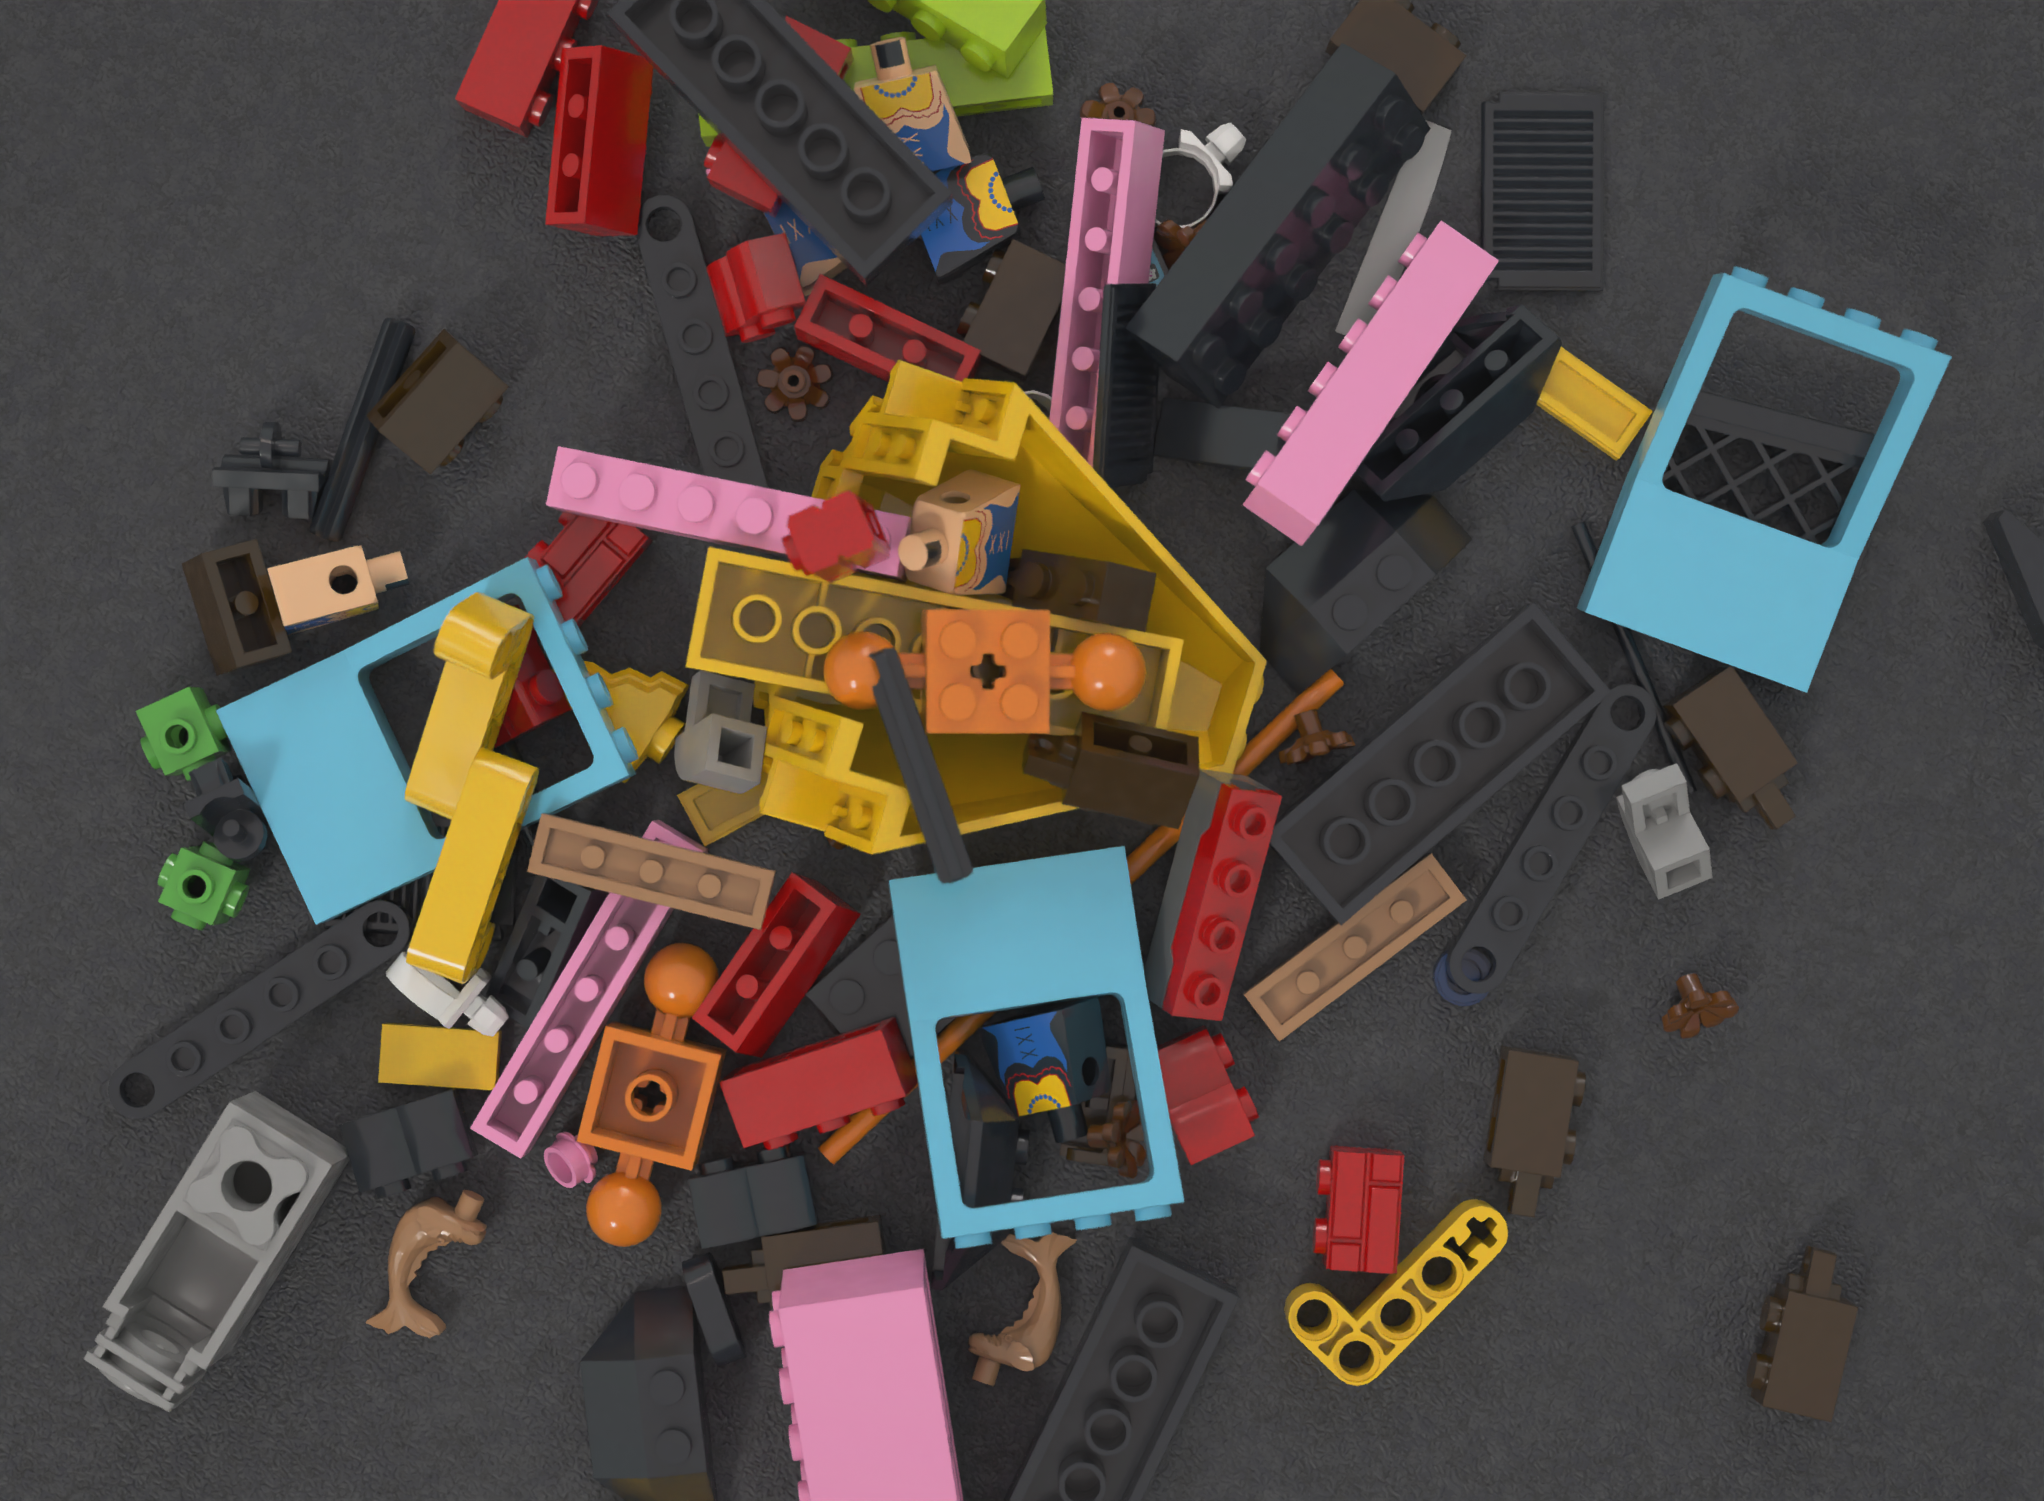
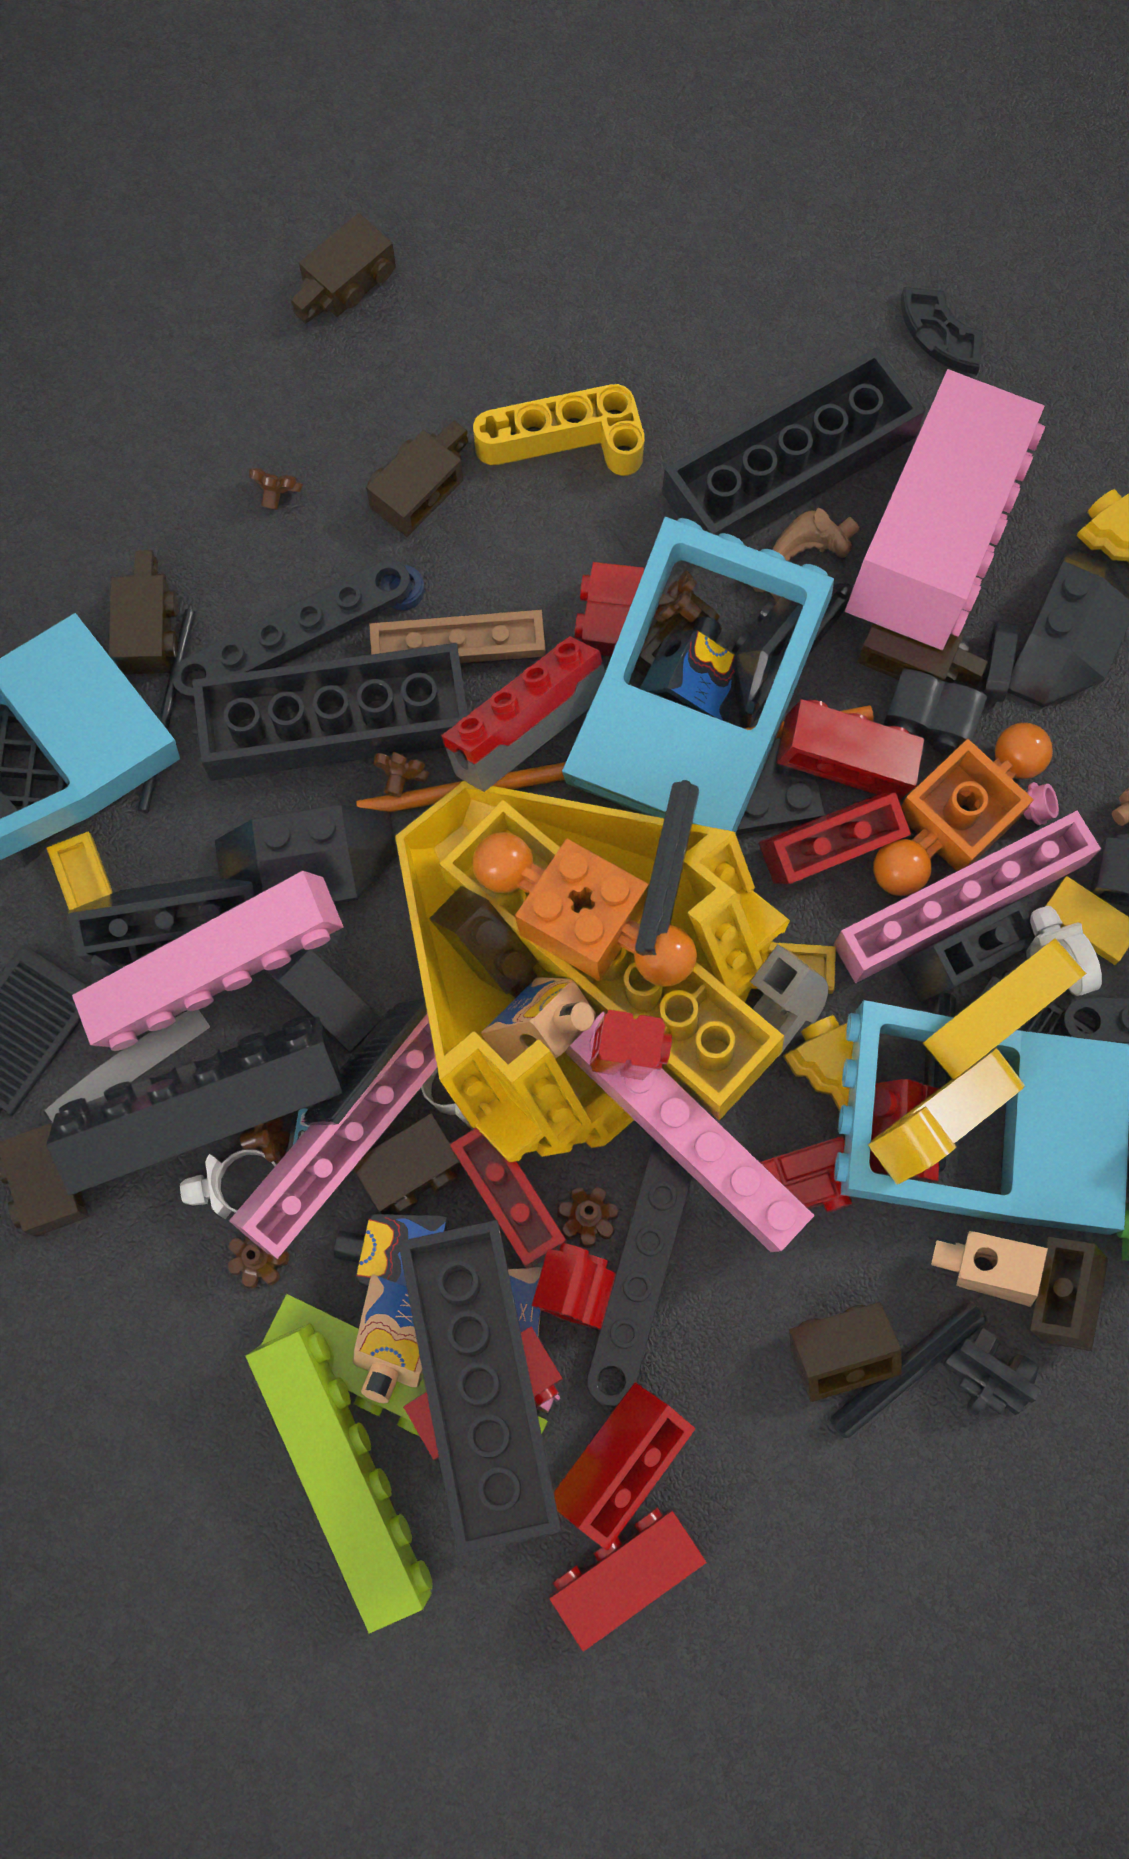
camera: 150 degrees left, 15 degrees down
(651, 871) = (884, 933): medium nougat plate -> none
(1119, 768) = (533, 800): dark brown hinge -> none
(1361, 1209) = (555, 488): red brick -> none
(1664, 831) = (221, 591): light grey brick -> none

